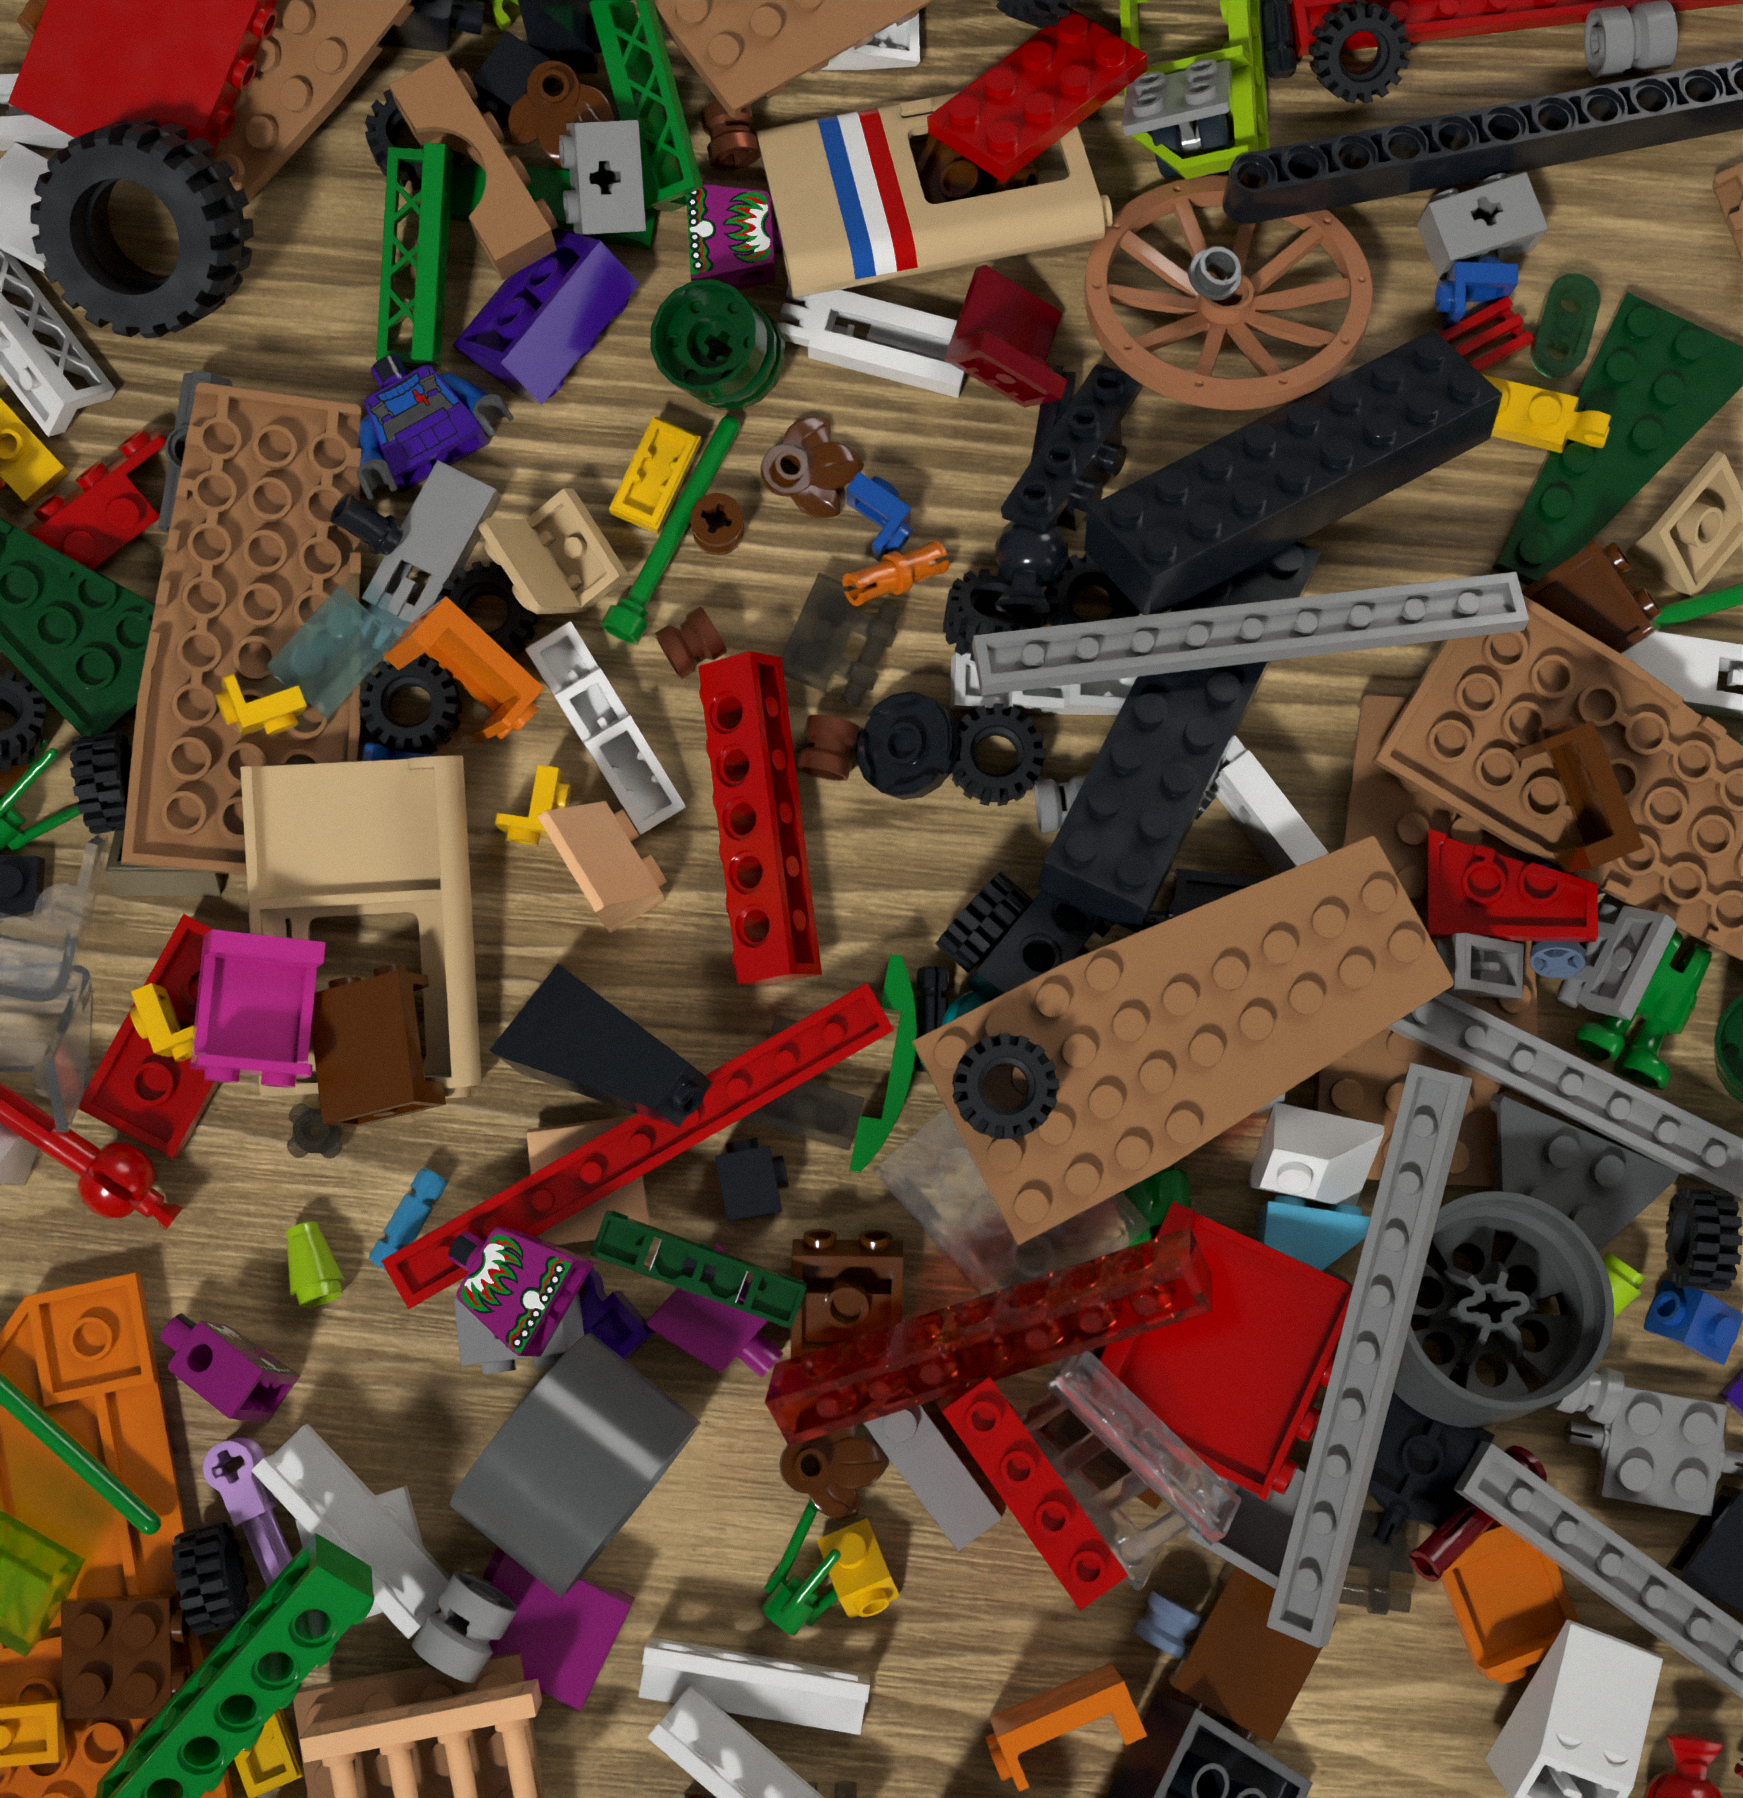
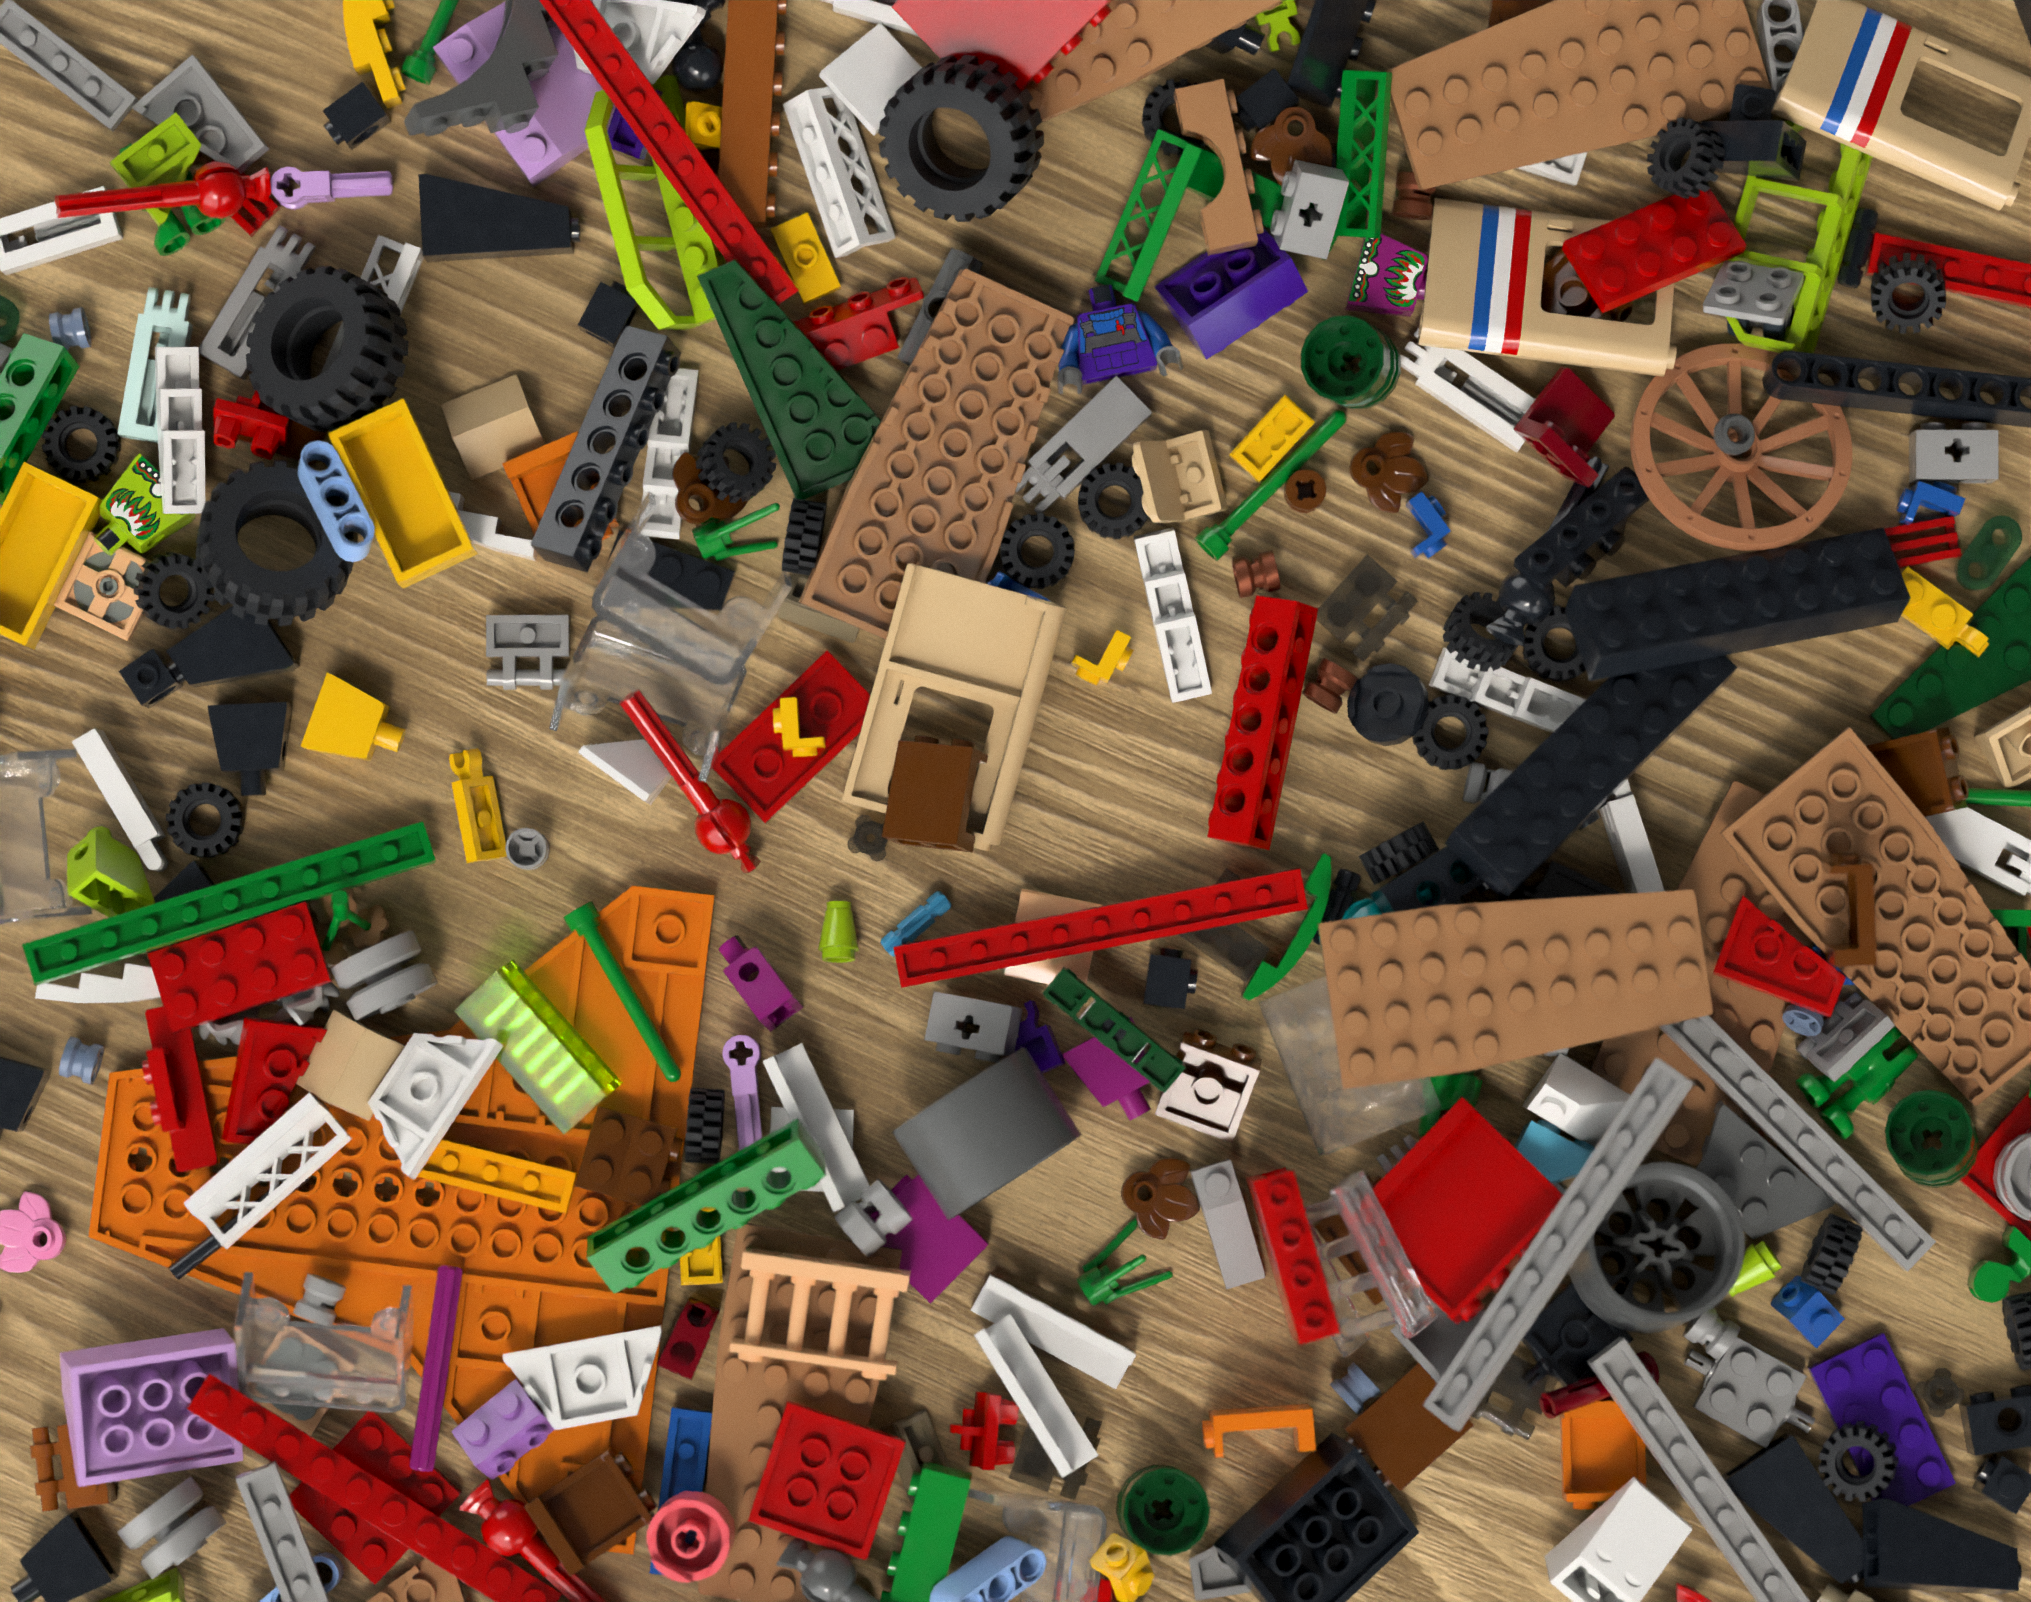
camera: 20 degrees right, 5 degrees up
(255, 1007) = (863, 739): dark pink panel -> none
(272, 712) = (940, 530): yellow bracket -> none
(332, 652) = (995, 497): clear light blue plate -> none
(377, 531) = (1057, 418): black pin -> none
(473, 663) = (1097, 541): orange panel -> none
(518, 1285) = (986, 997): torso -> none
(594, 1049) = (1091, 850): black slope -> none
(604, 861) = (1142, 717): light nougat slope -> none
(861, 1572) = (1154, 1278): yellow bracket -> none
(895, 573) = (1423, 574): orange pin -> none
(991, 1337) = (1302, 1144): clear red brick -> none
(1030, 1061) = (1398, 977): black tyre -> none
(1248, 633) = (1659, 715): light grey plate -> none
(1483, 966) = (1744, 1008): light grey slope -> none

